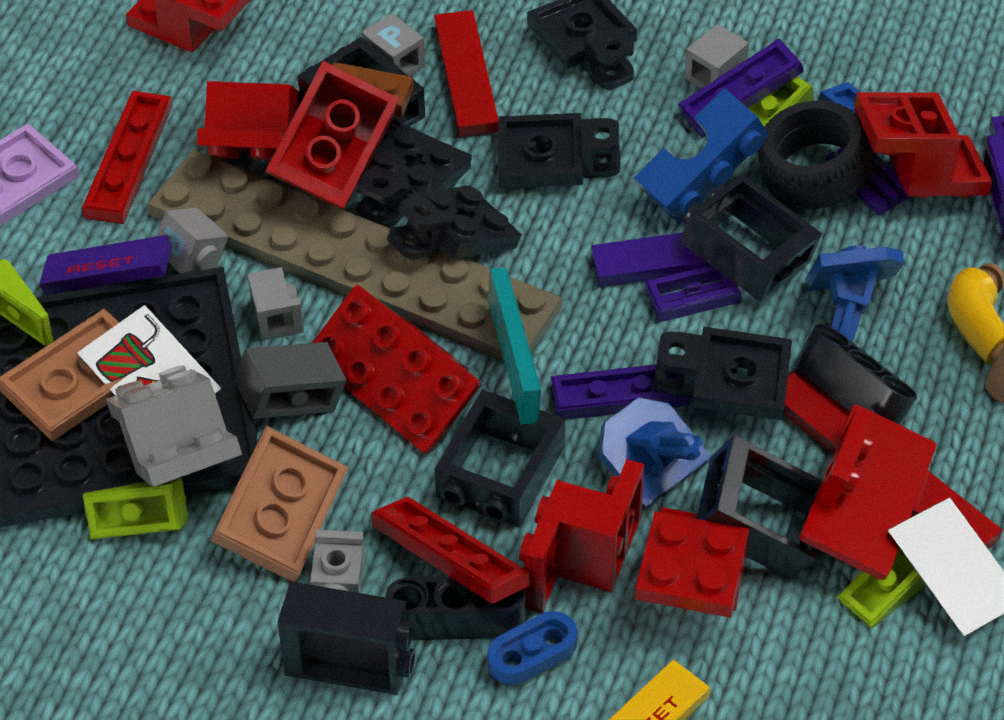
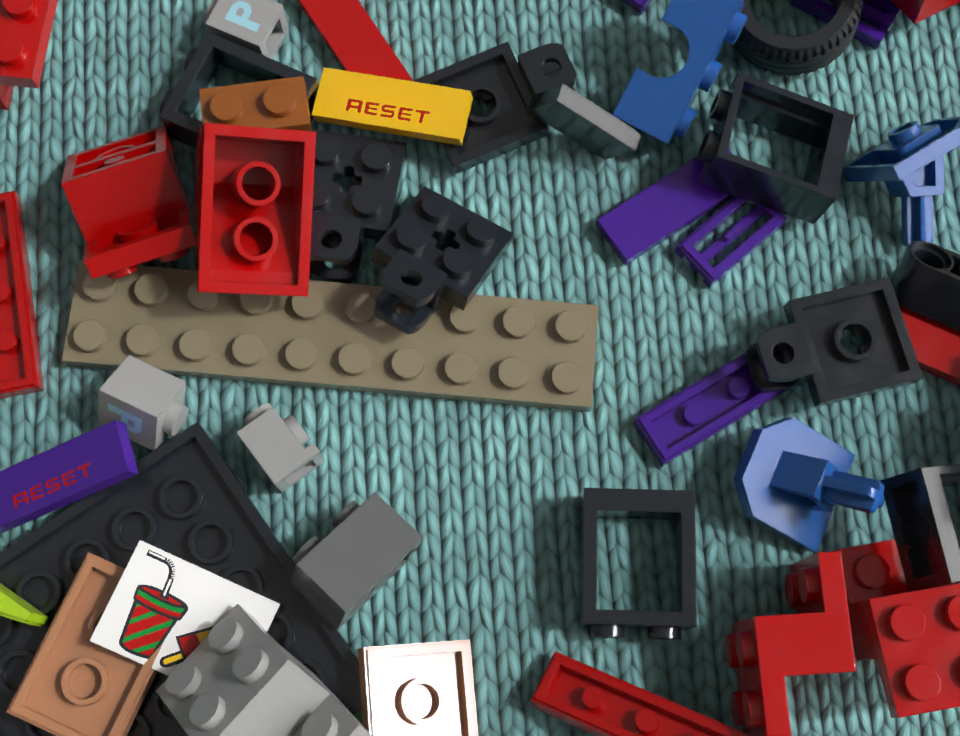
camera: 25 degrees left, 25 degrees up
(397, 369) = (464, 482): red bracket -> none
(472, 125) = (392, 106): none -> yellow tile
(514, 346) = (599, 421): teal tile -> none
(609, 174) = (584, 122): none -> black tile

